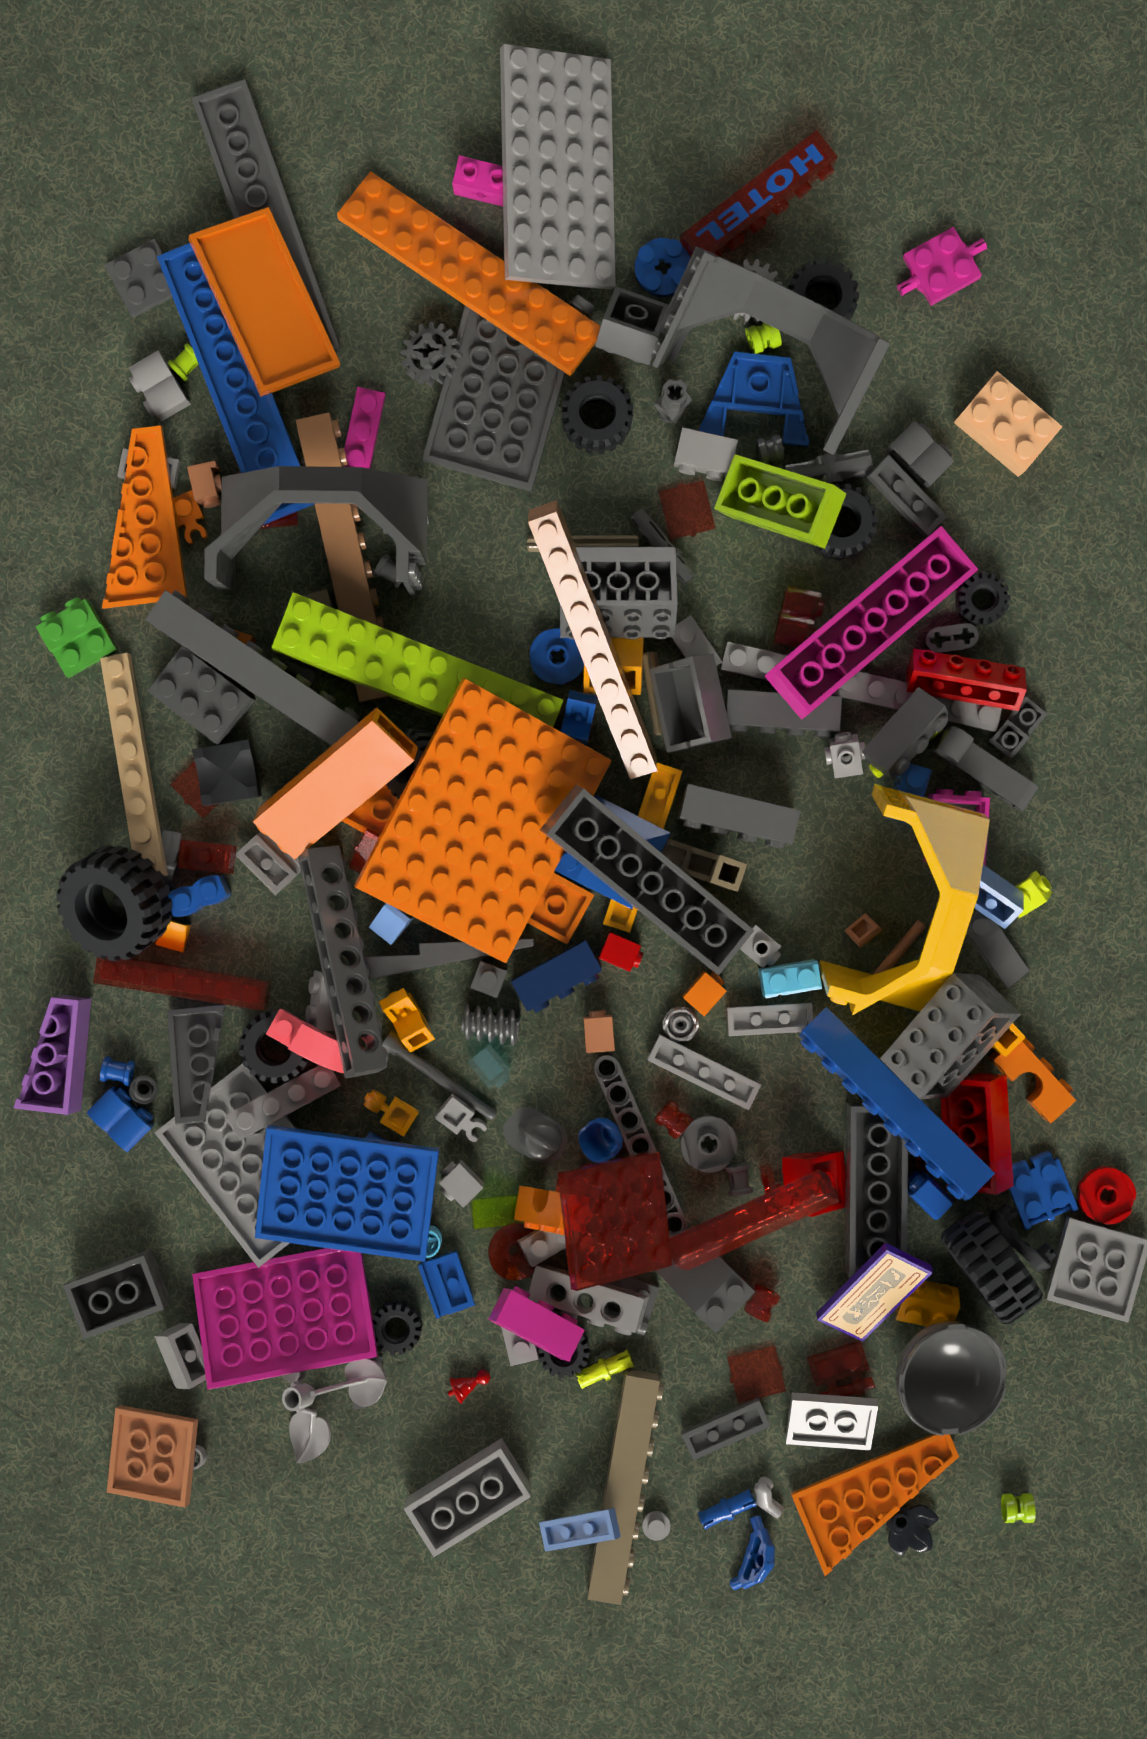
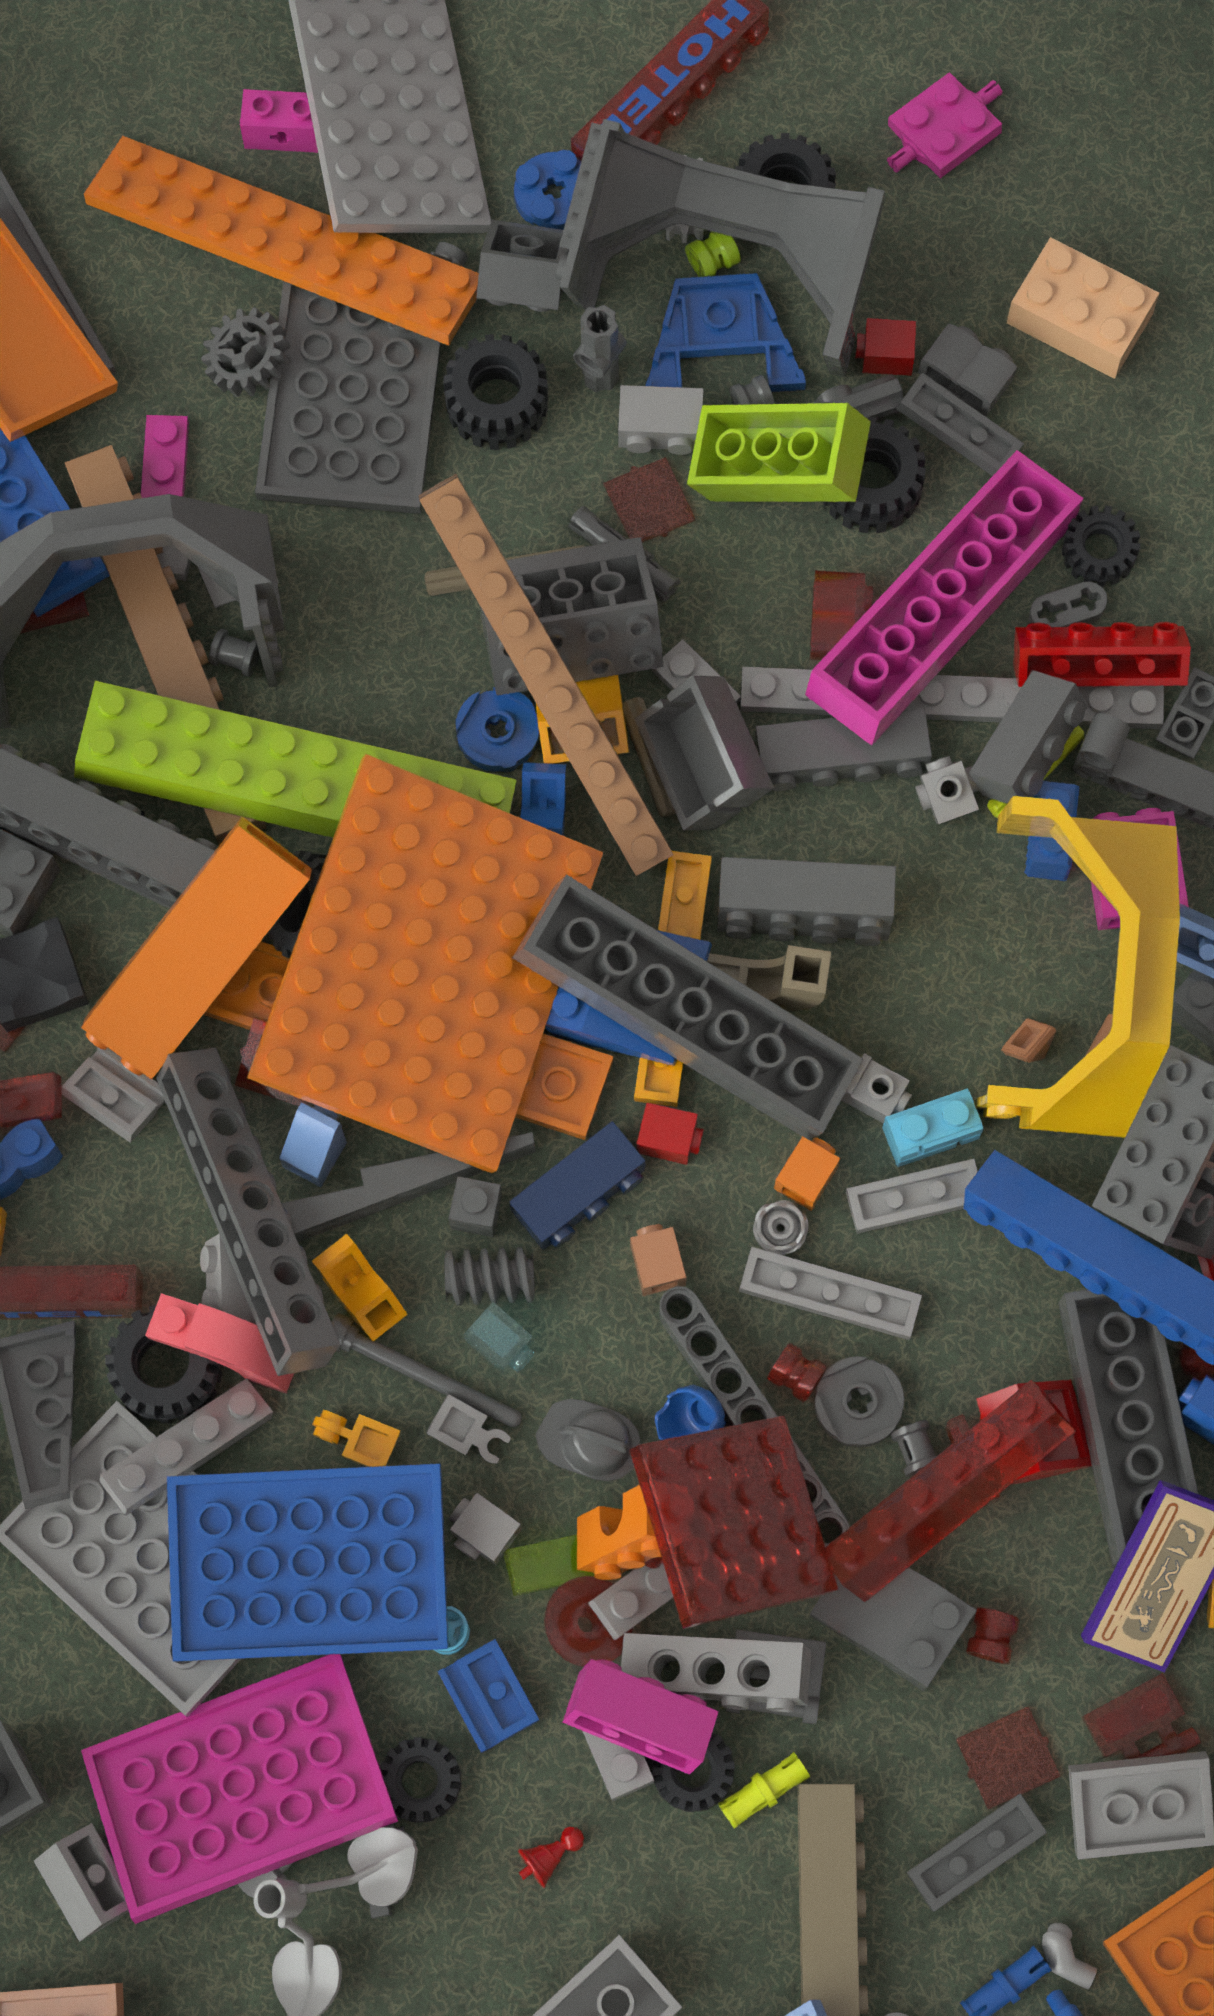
camera: 10 degrees left, 15 degrees down
(869, 428) = (887, 346): none -> red brick

